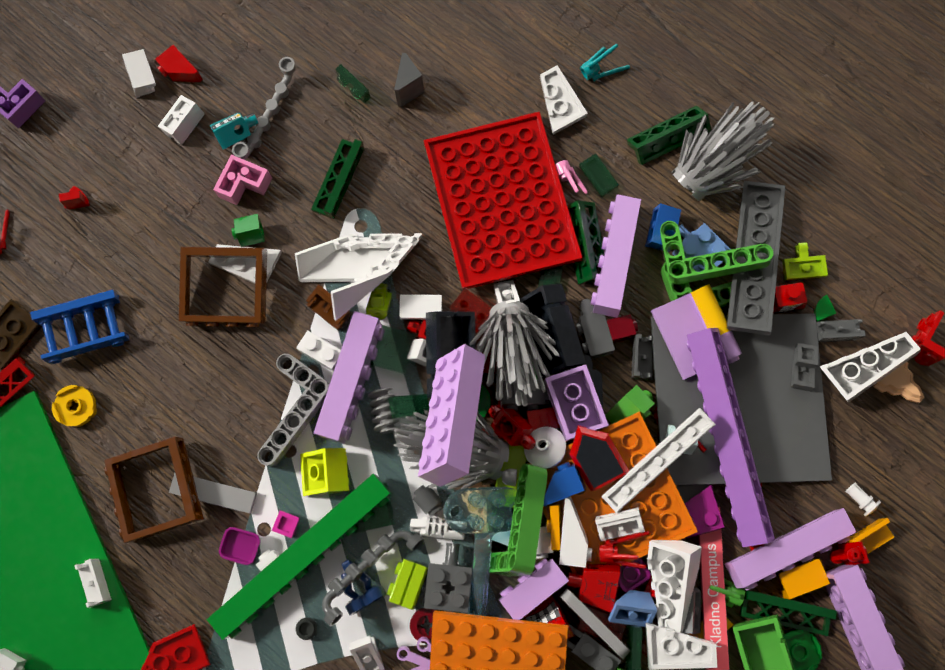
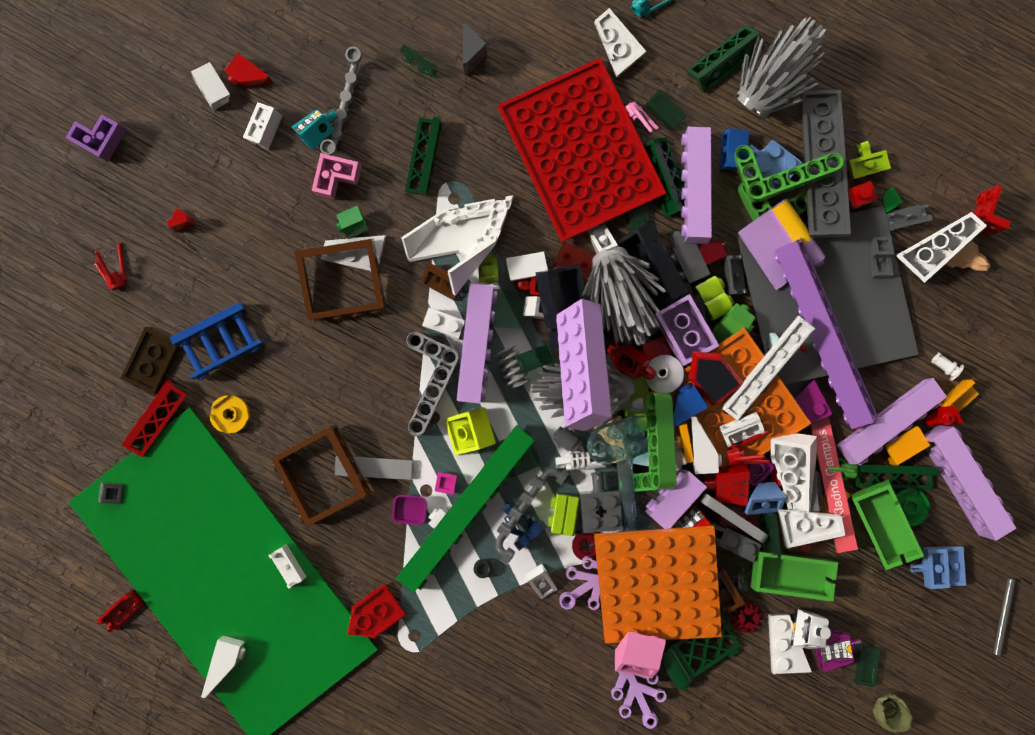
camera: 15 degrees left, 10 degrees up
(615, 376) = (714, 298): none -> lime brick

